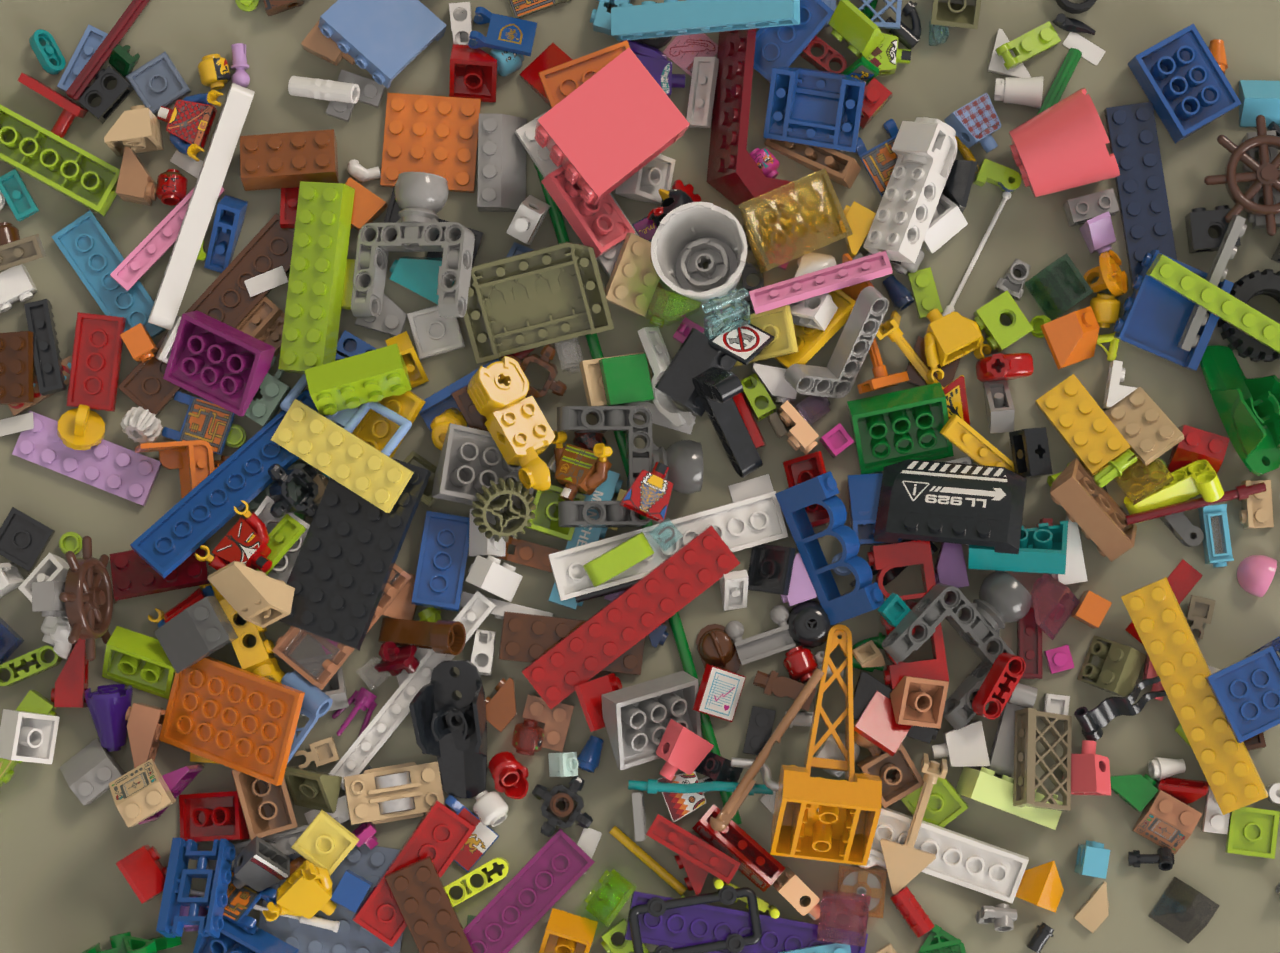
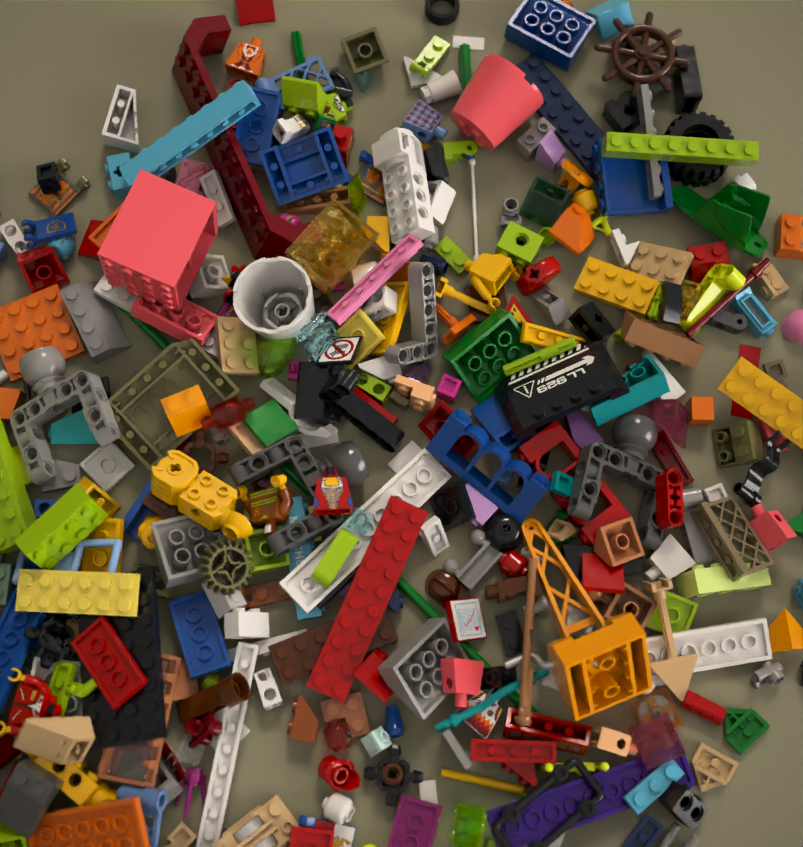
camera: 30 degrees left, 10 degrees down
(298, 557) = (80, 690): none -> lime arm
(339, 544) = (109, 662): none -> red tile
(352, 675) = (173, 762): none -> red sticker
(454, 726) = (275, 759): black piece -> none
(528, 220) = (135, 349): white torso -> none
(547, 321) = (186, 410): none -> light orange slope
(588, 347) = (227, 413): none -> clear red piece
(822, 57) = (292, 128): none -> white leg
(856, 170) = (357, 194): none -> clear neon green piece
(952, 459) = (539, 356): none -> lime axle
(1059, 659) = (697, 460): dark pink plate -> none
(1072, 25) = (451, 31): black bar -> none
(1122, 484) = (671, 307): none -> black slope

